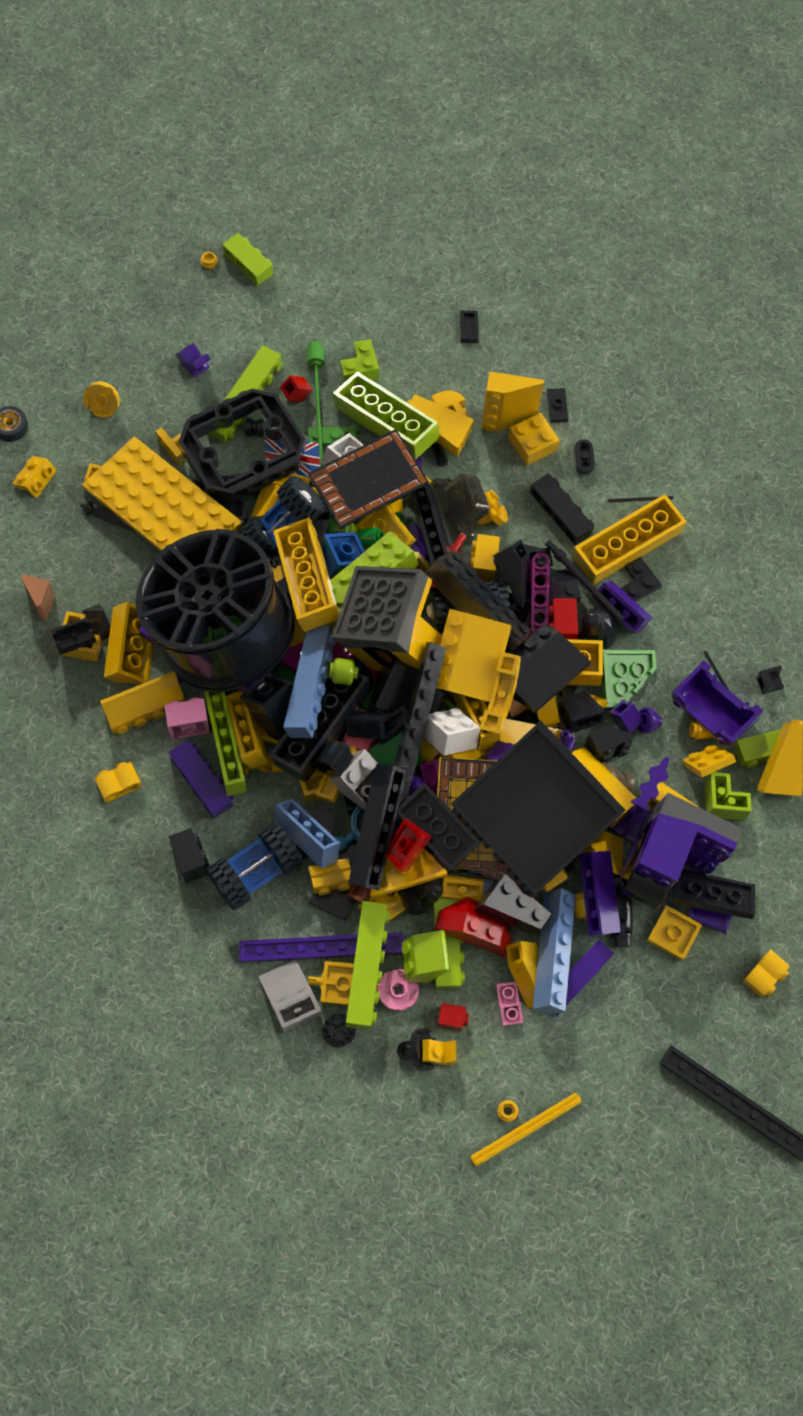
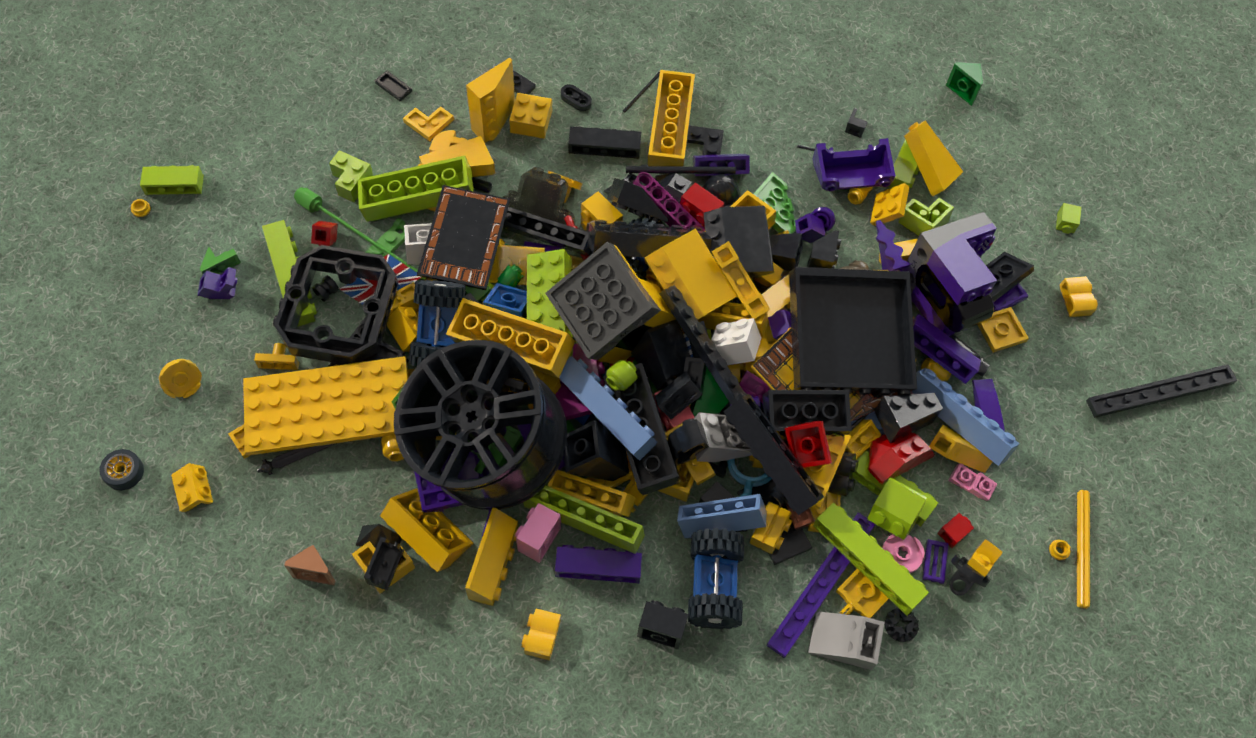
camera: 50 degrees left, 5 degrees down
(208, 344) = (220, 263): none -> bright green slope
(429, 1012) = (932, 577): none -> dark purple tile
(456, 379) = (428, 126): none -> yellow plate

